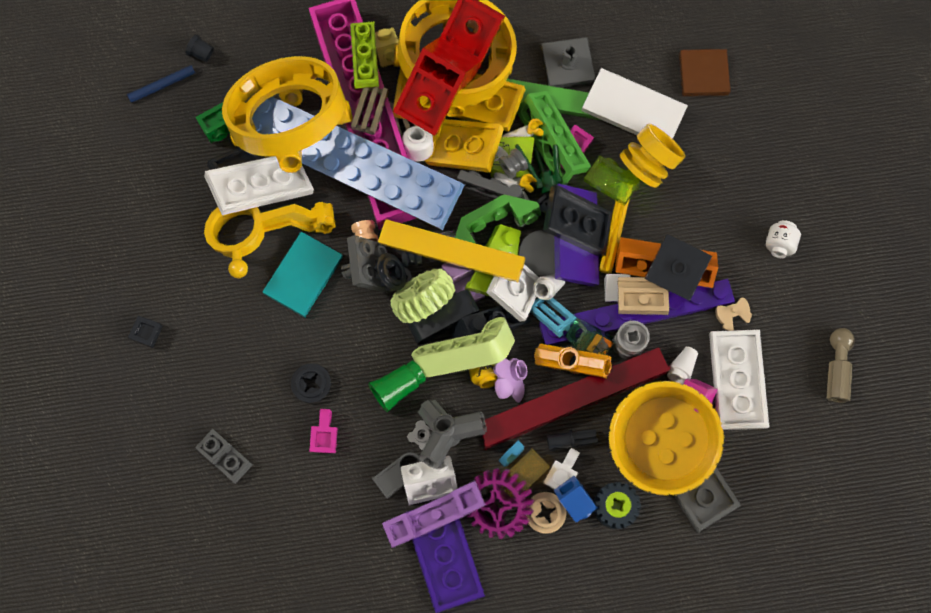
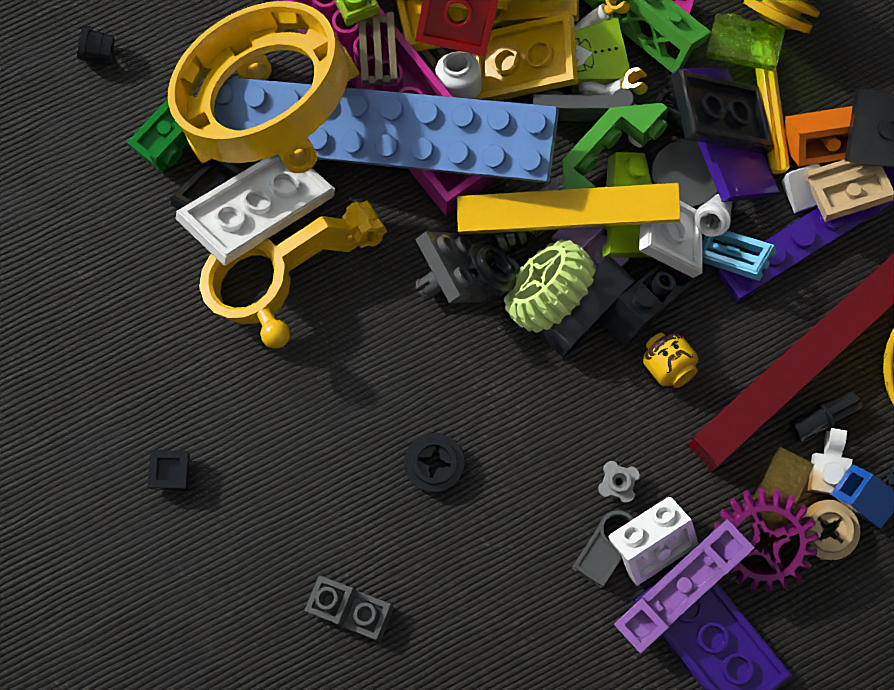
camera: 20 degrees left, 0 degrees up
(161, 83) = (57, 111): dark blue bar -> none
(302, 274) = (363, 314): teal tile -> none
(324, 437) = (482, 532): dark pink plate -> none
(365, 229) = (429, 220): light nougat wheel -> none
(397, 385) = (557, 424): green plant -> none
(446, 431) = (655, 481): dark grey piece -> none
(467, 351) = (640, 345): yellowish green beam -> none
(510, 378) = (710, 354): lavender plate -> none
(512, 454) = (755, 458): dark azure tile -> none
(513, 163) = (606, 61): dark grey wheel -> none
(545, 179) = (657, 71): dark green plant -> none
(585, 363) = (813, 303): light orange piece -> none
(591, 339) = (804, 270): clear green leg -> none
(631, 339) = (855, 252): light grey wheel -> none

